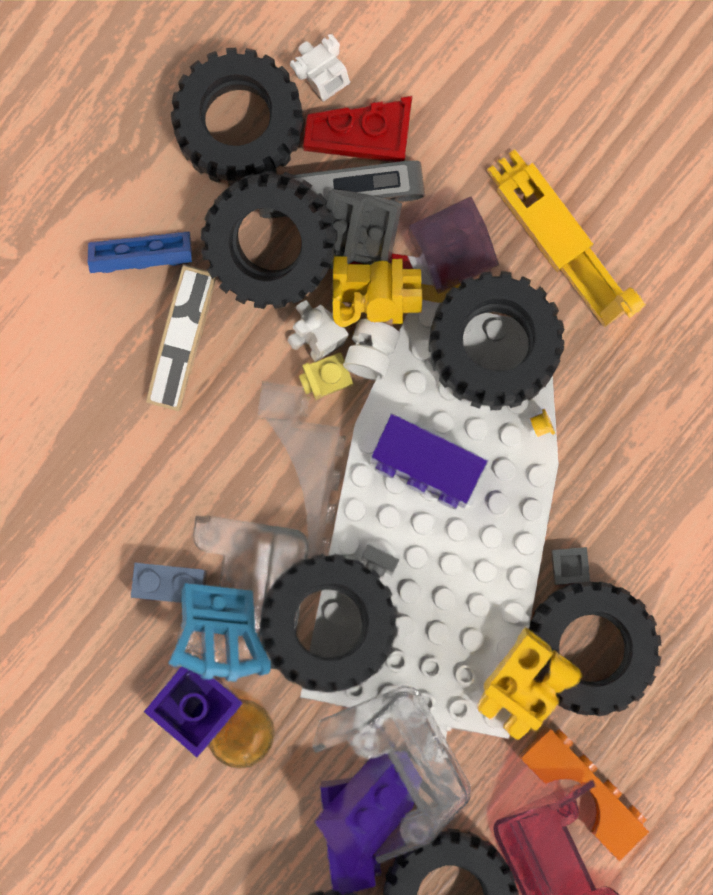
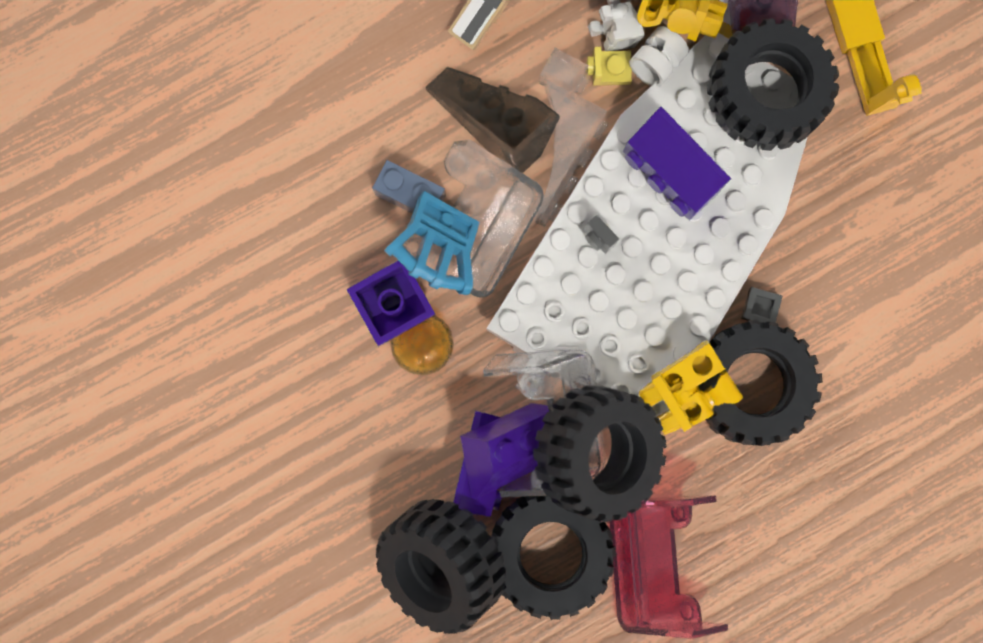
camera: 20 degrees right, 0 degrees up
(239, 475) = (501, 121): none -> clear smoke wedge
(376, 612) = (564, 236): black tyre -> none
(496, 791) = (633, 459): none -> black tyre
(542, 424) = (785, 173): yellow piece -> none
(614, 824) = (718, 543): orange arch -> none

